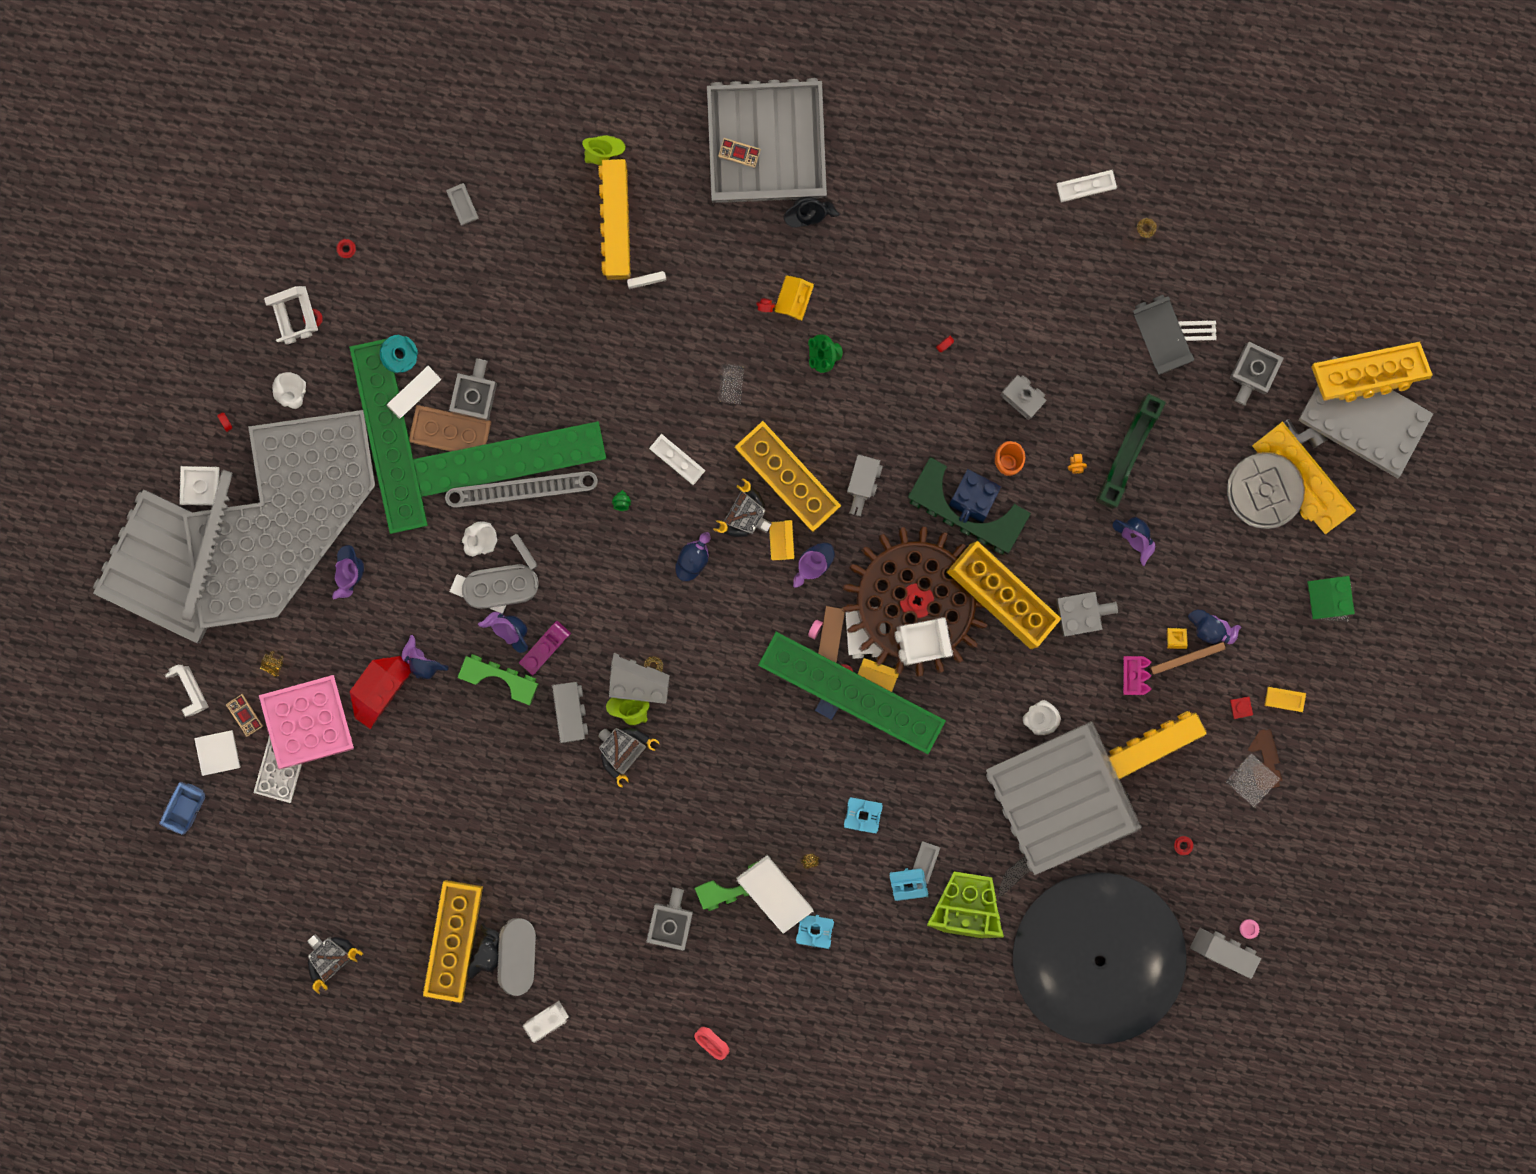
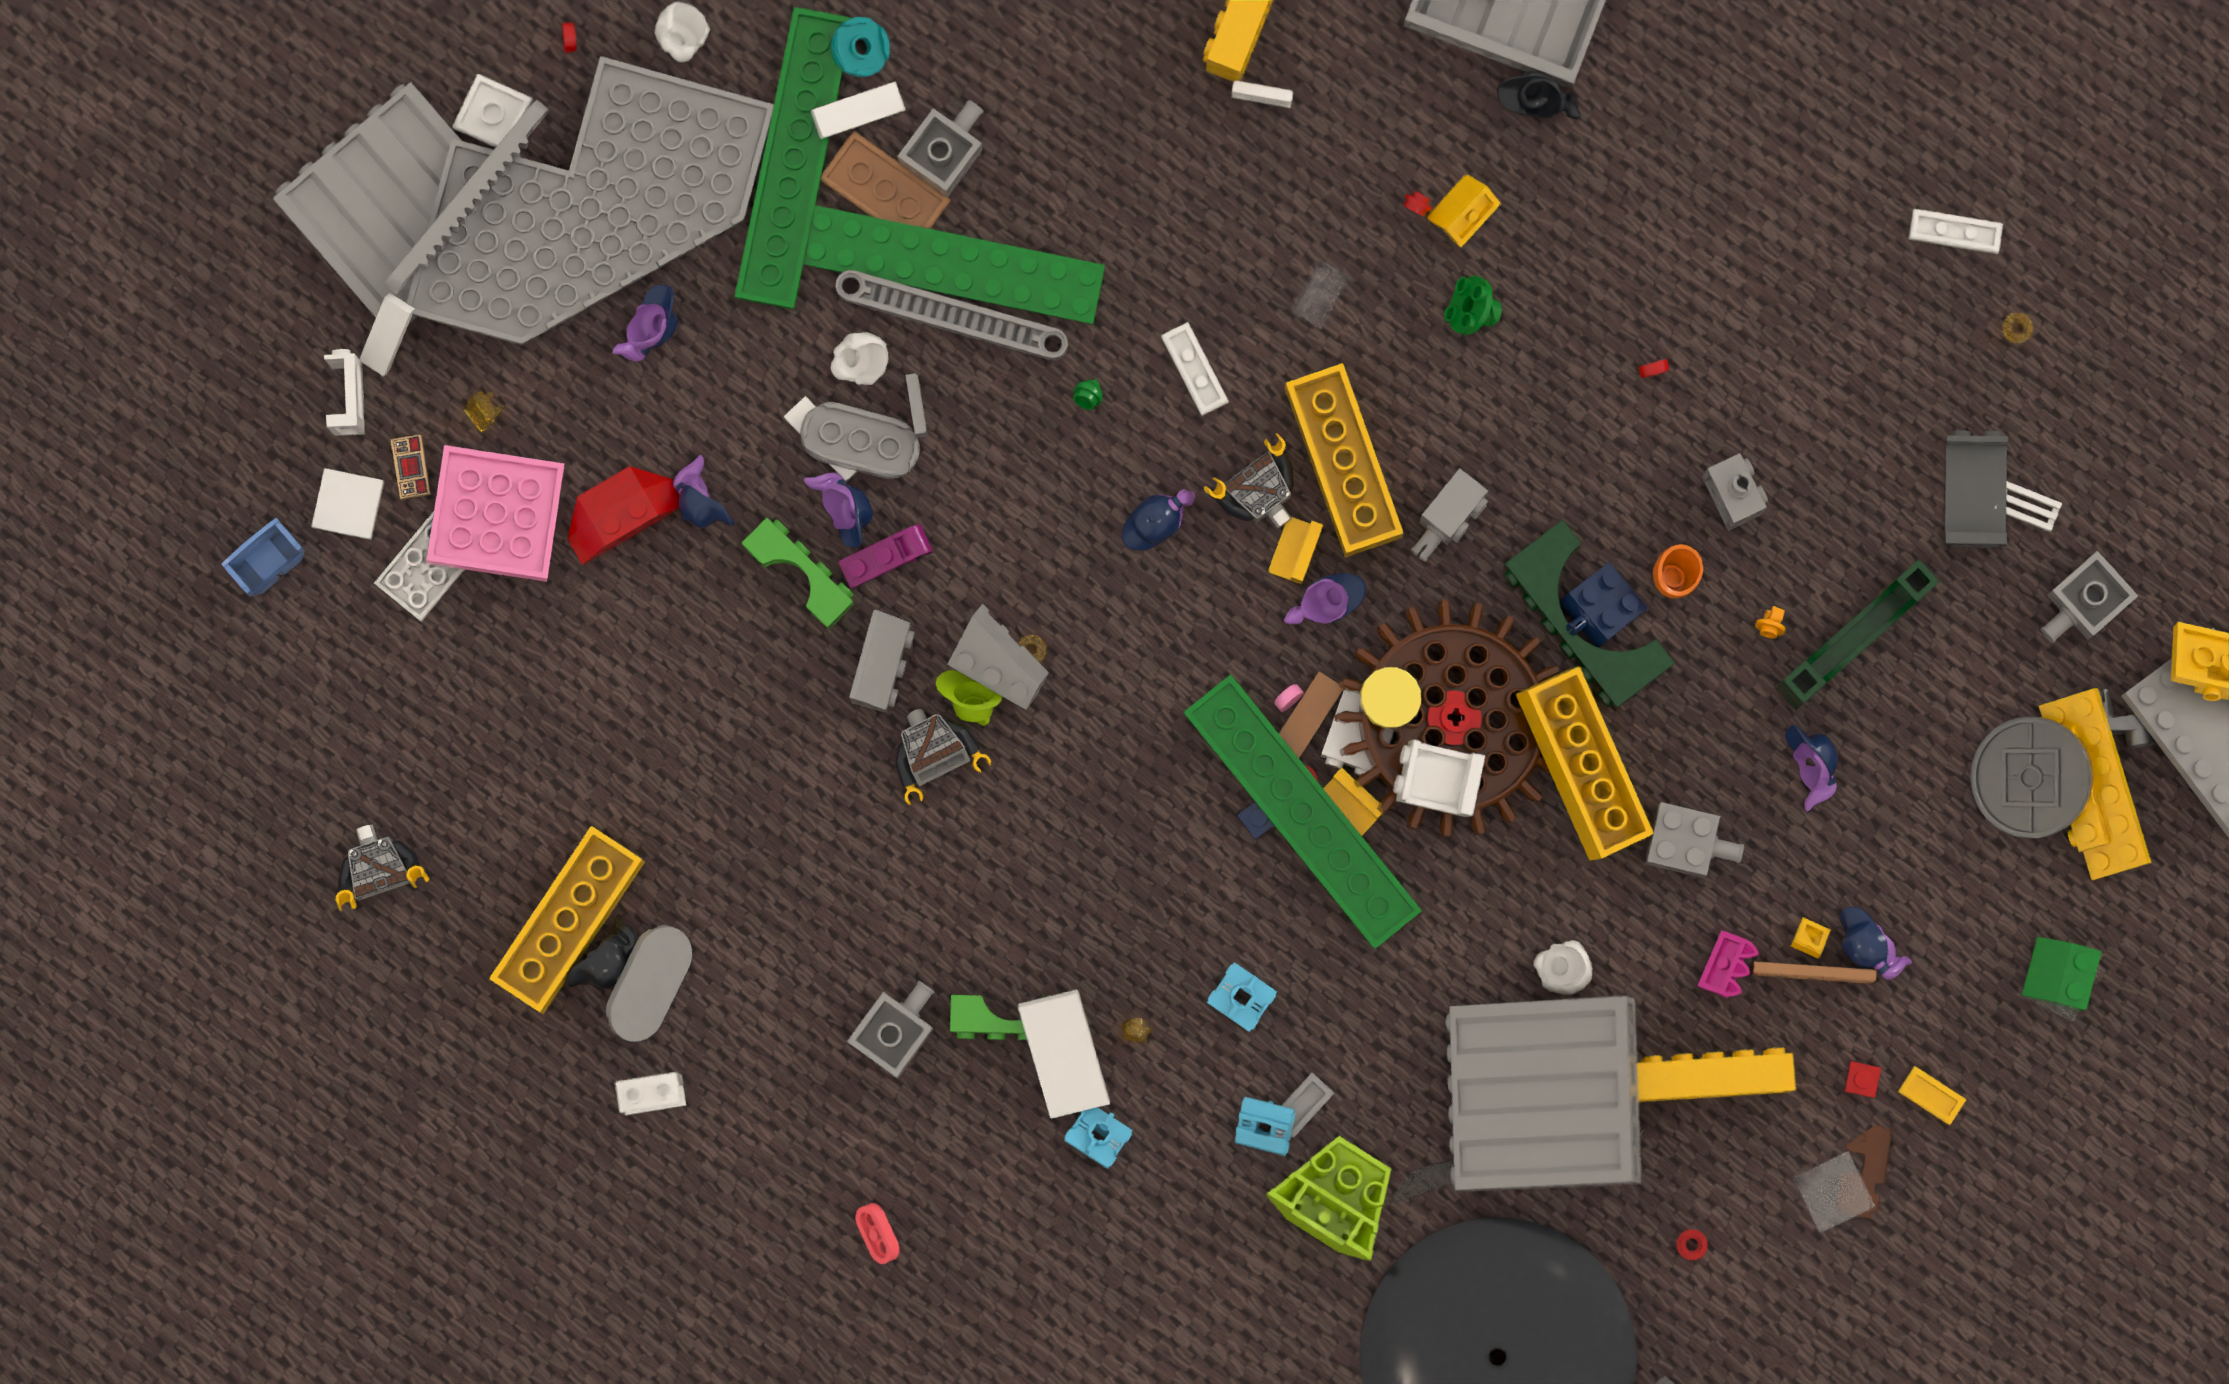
camera: 20 degrees right, 5 degrees down
(196, 645) = (386, 334): none -> white tile
(875, 606) = (1390, 697): none -> light yellow tile

